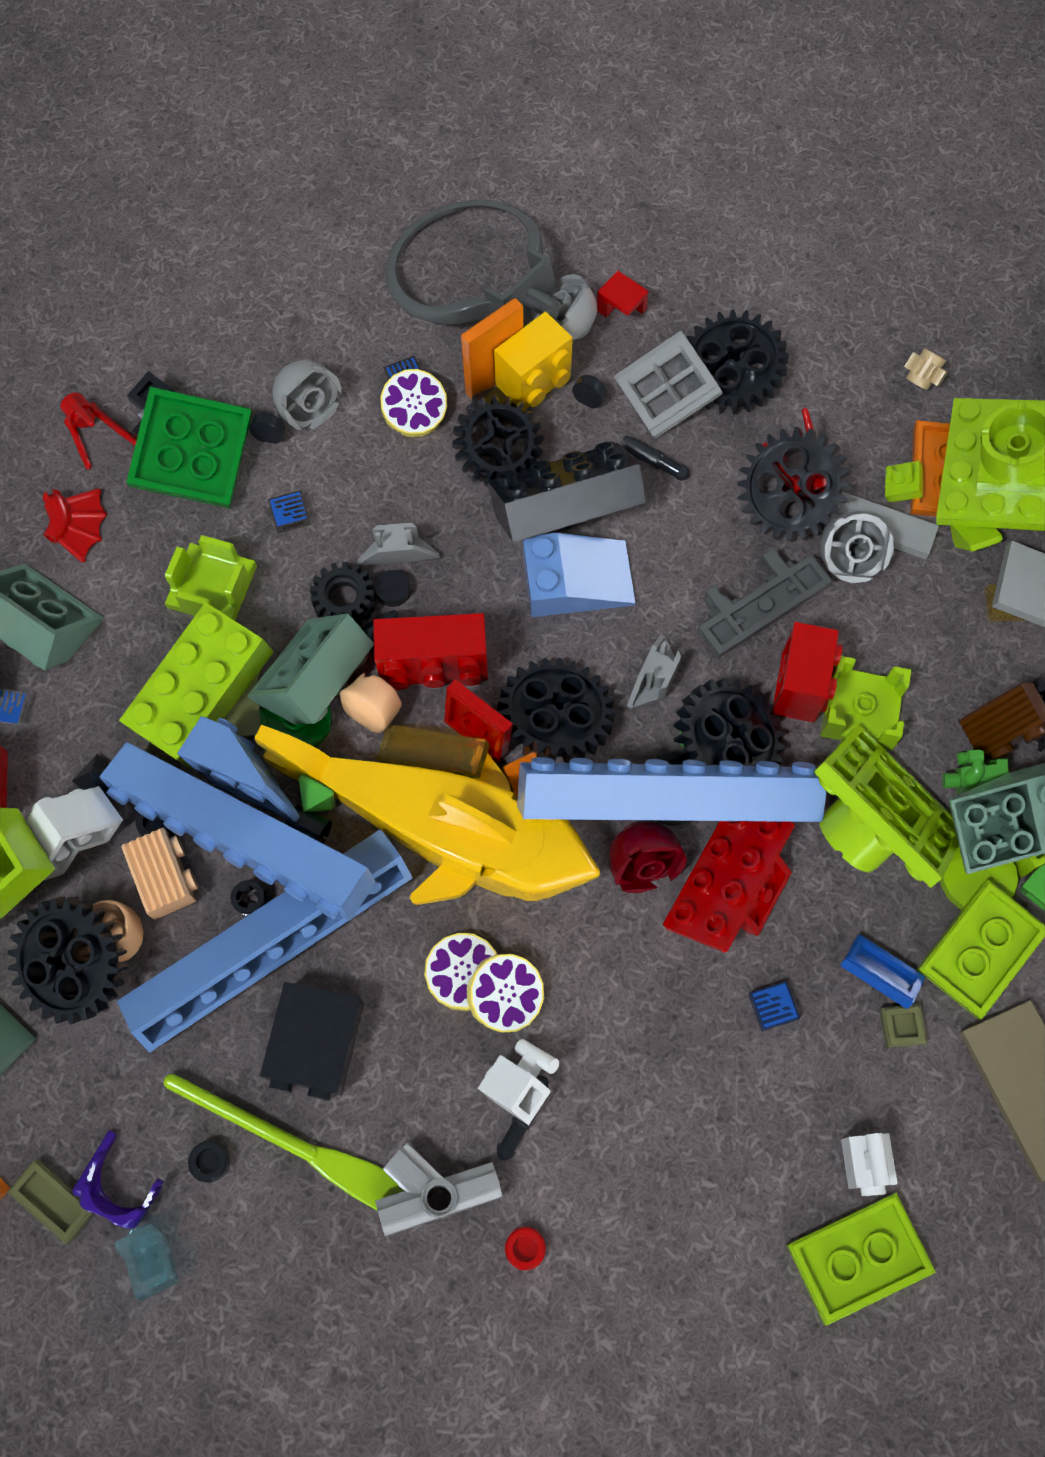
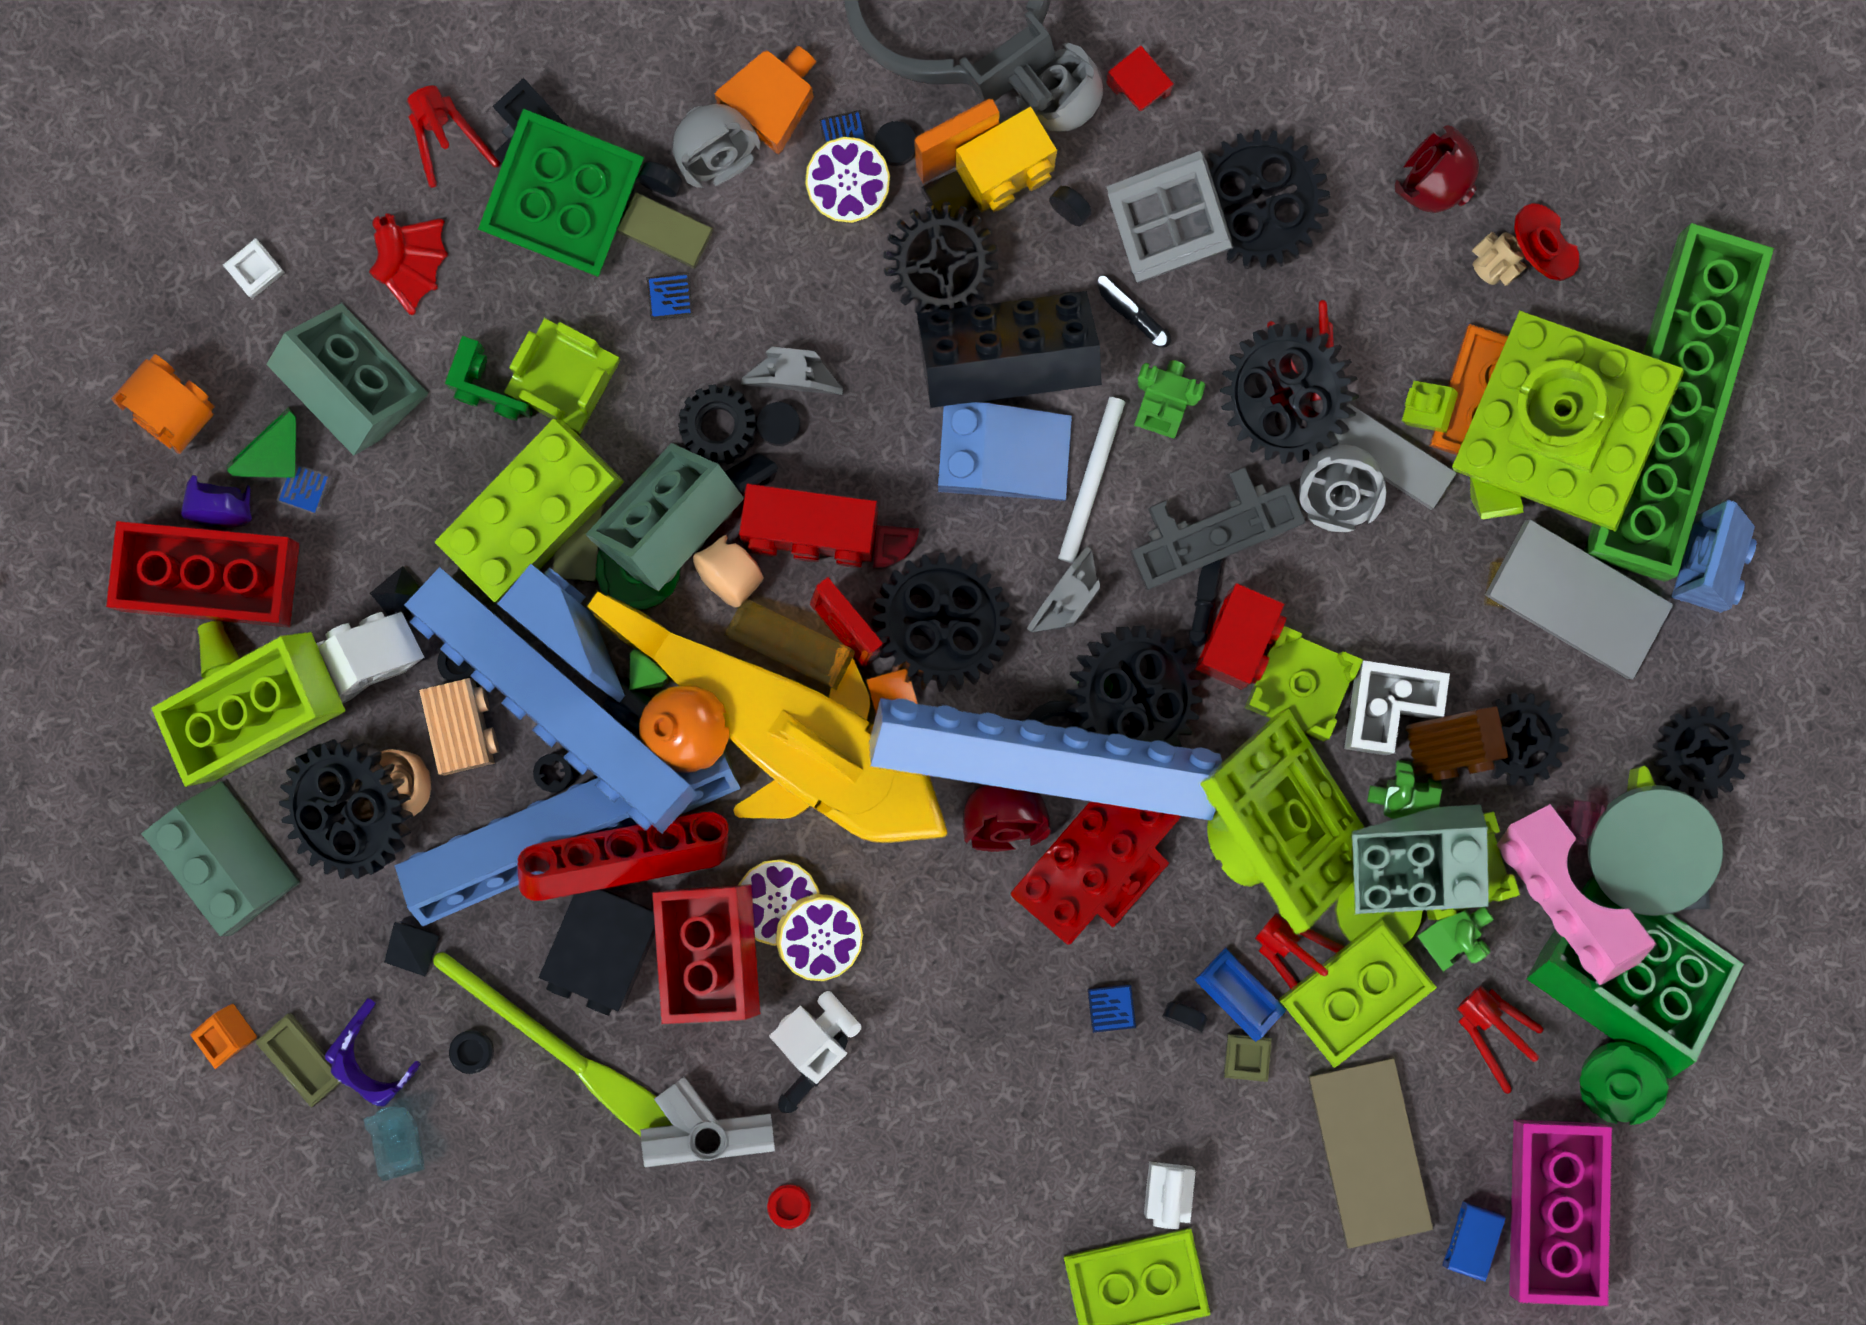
camera: 15 degrees right, 15 degrees up
(132, 602) = (469, 365): none -> green bracket
(142, 1076) = (411, 948): none -> black slope
(277, 465) = (665, 230): none -> olive tile
(317, 952) = (608, 870): none -> red beam
(346, 353) = (771, 95): none -> orange torso
(356, 825) = (685, 728): none -> orange cylinder
(407, 1024) = (706, 954): none -> red brick
(448, 373) = (896, 143): none -> black tile
(503, 662) = (893, 545): none -> dark red tile
(652, 585) = (1091, 480): none -> white bar
(697, 511) = (1166, 397): none -> bright green piece
(767, 660) = (1204, 605): none -> black piece
(840, 999) = (1185, 1017): none -> black tile
(868, 315) = (1441, 172): none -> dark red cylinder
(904, 914) = (1280, 938): none -> red plant
(937, 699) = (1383, 694): none -> white brick
(955, 355) = (1543, 244): none -> red dish

